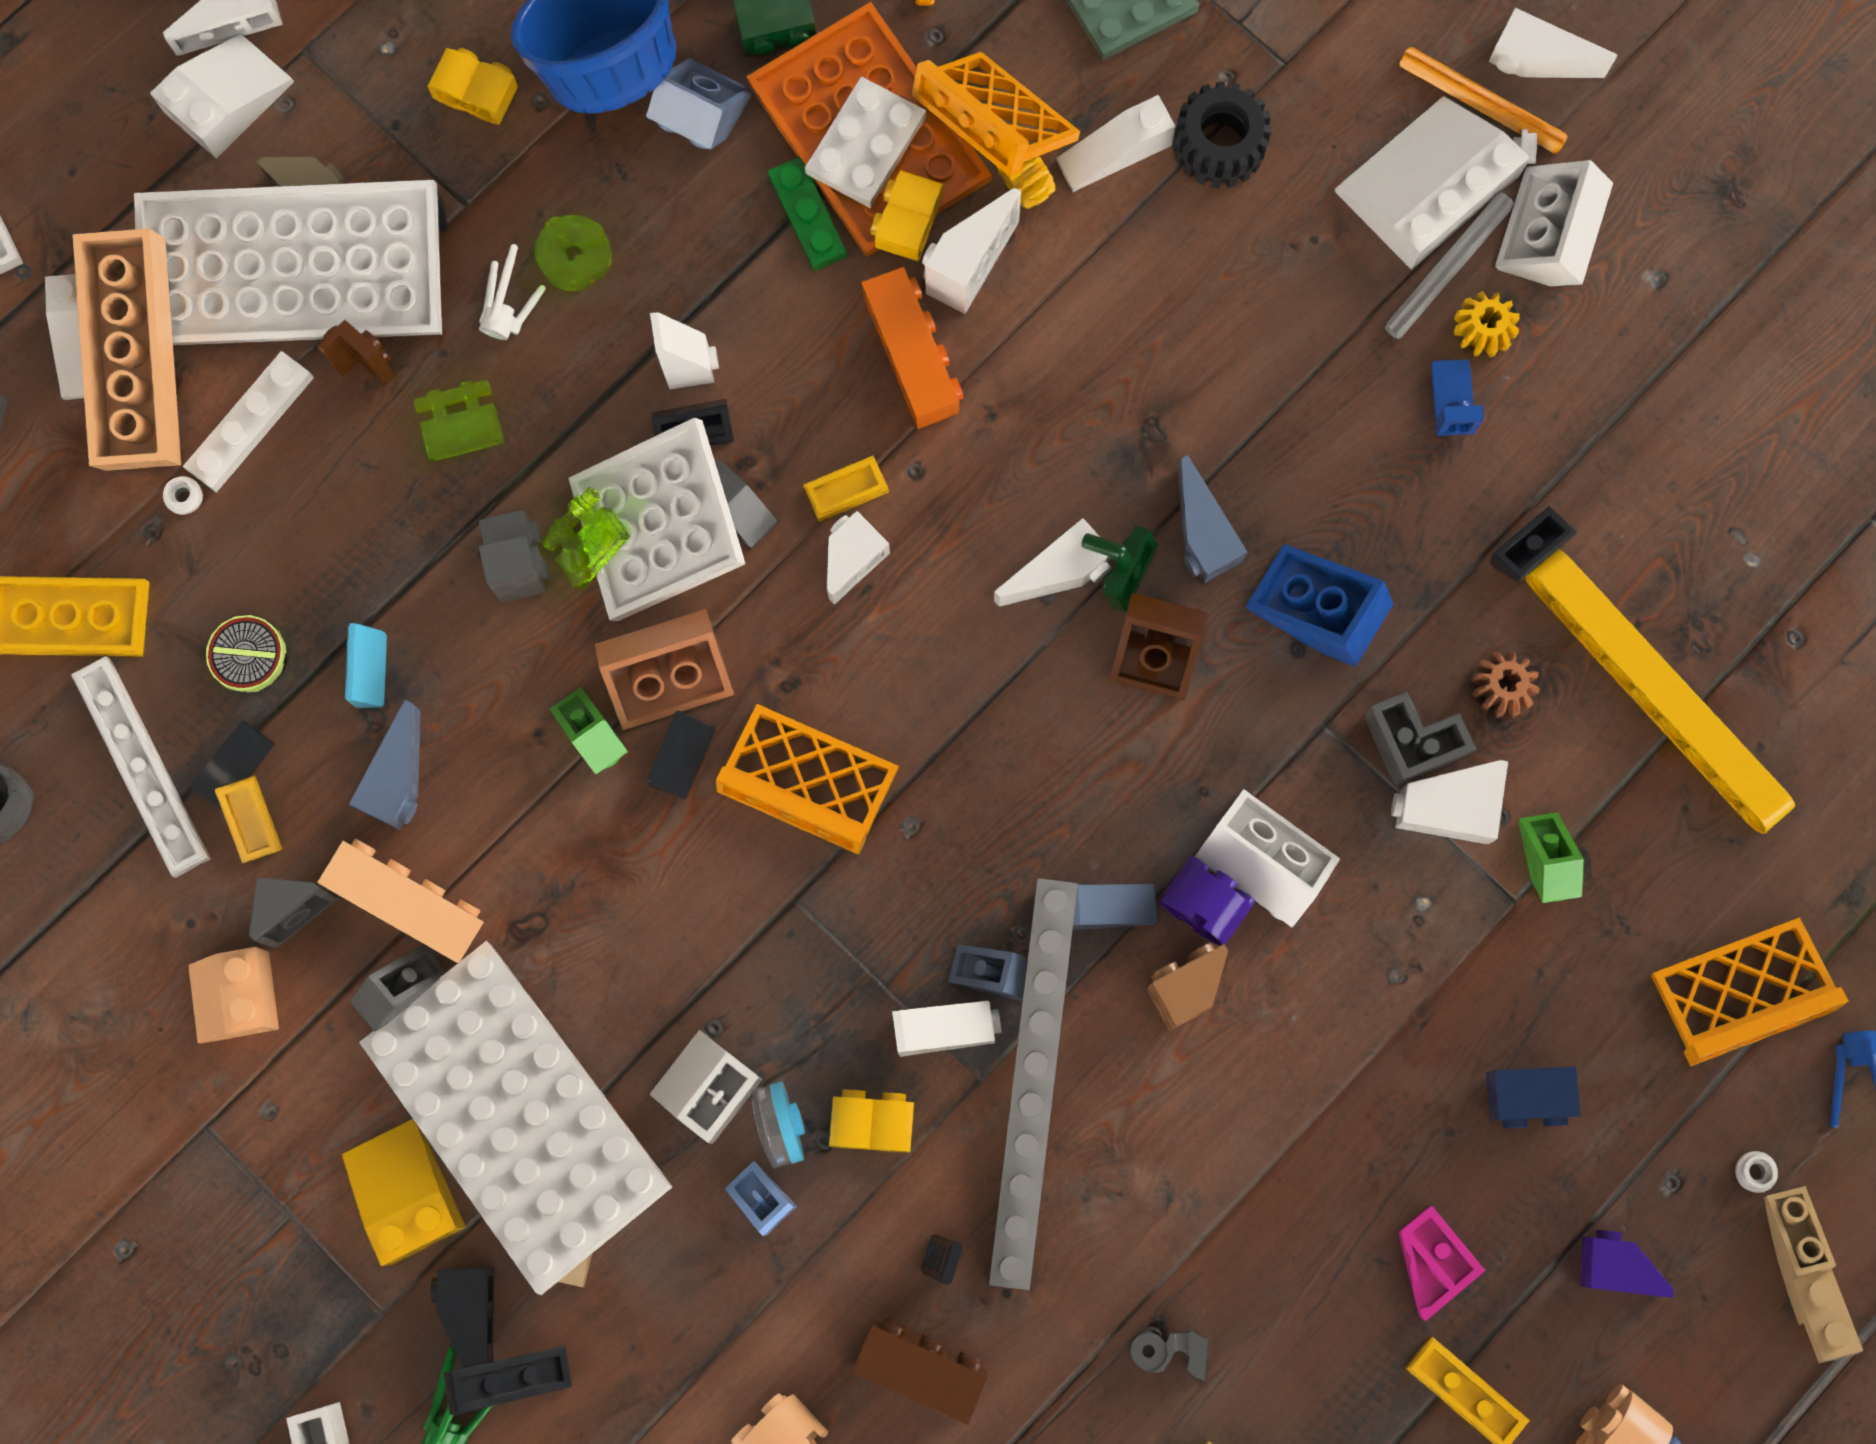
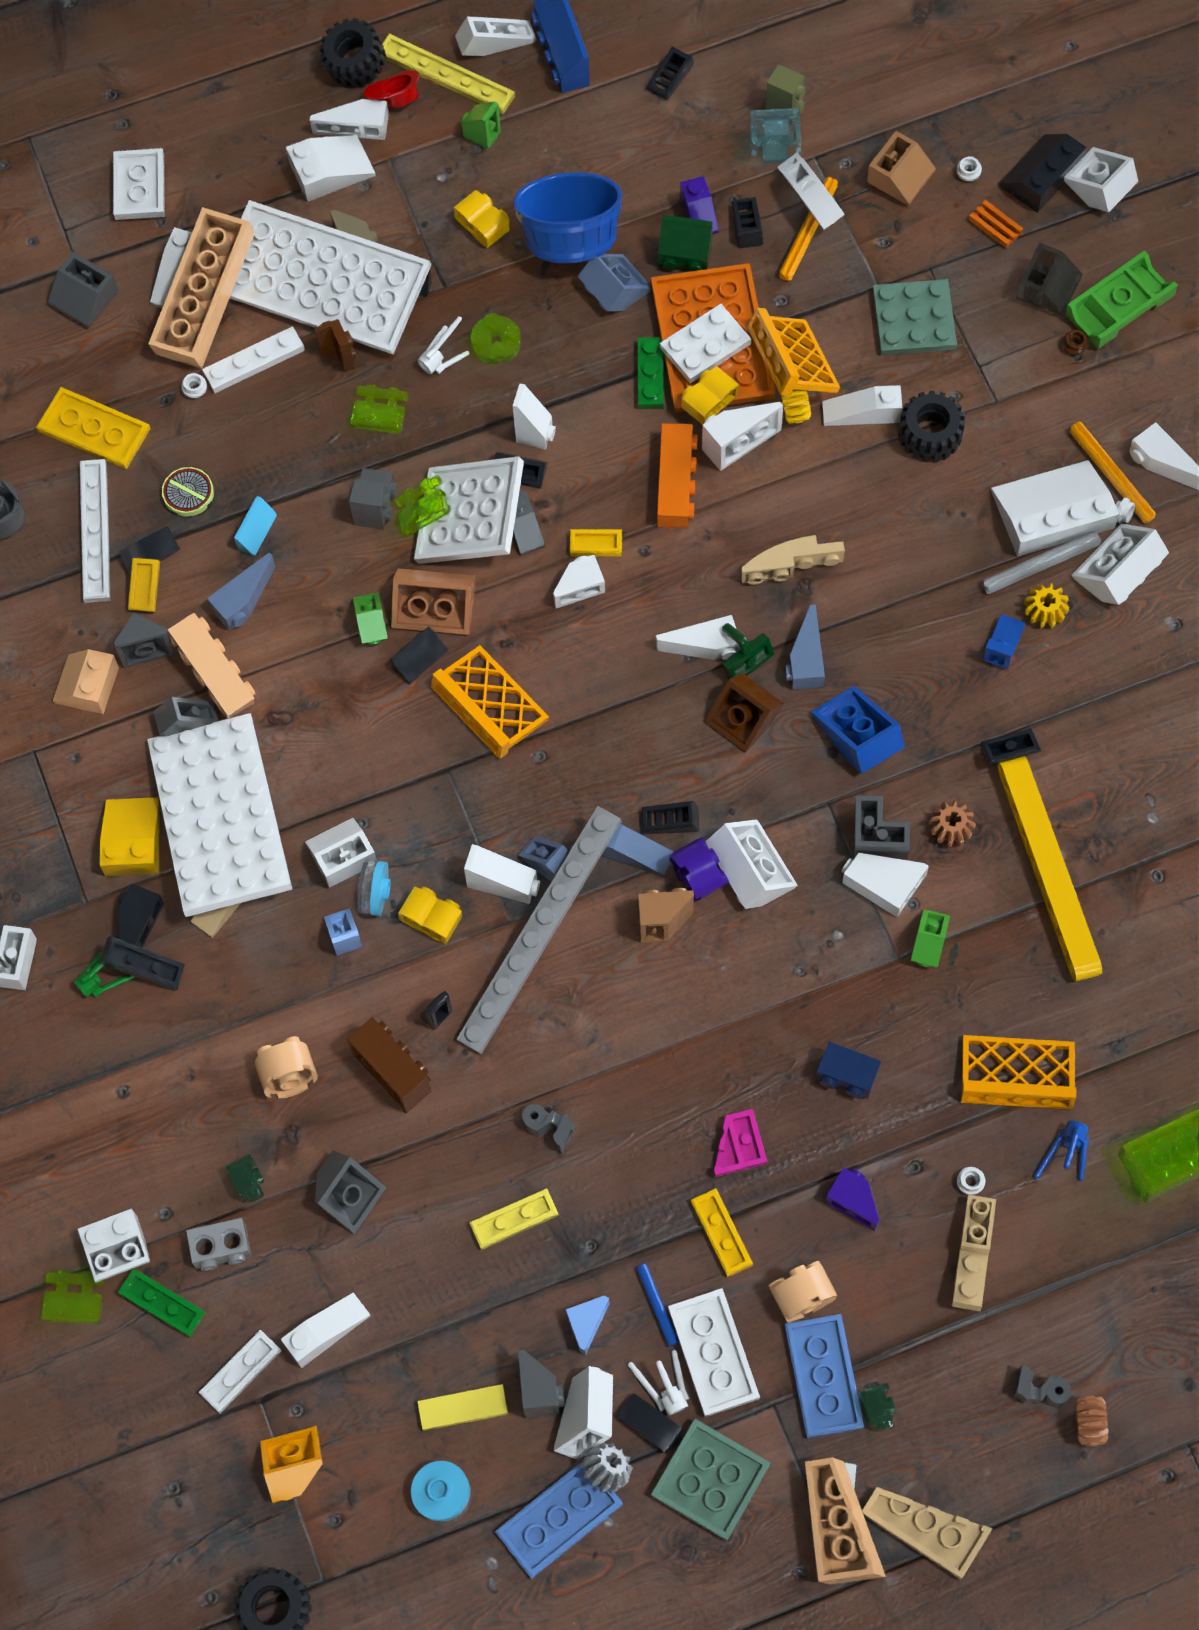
camera: 25 degrees right, 10 degrees down
(1110, 409) = (780, 560): none -> tan slope
(1159, 825) = (681, 827): none -> black slope

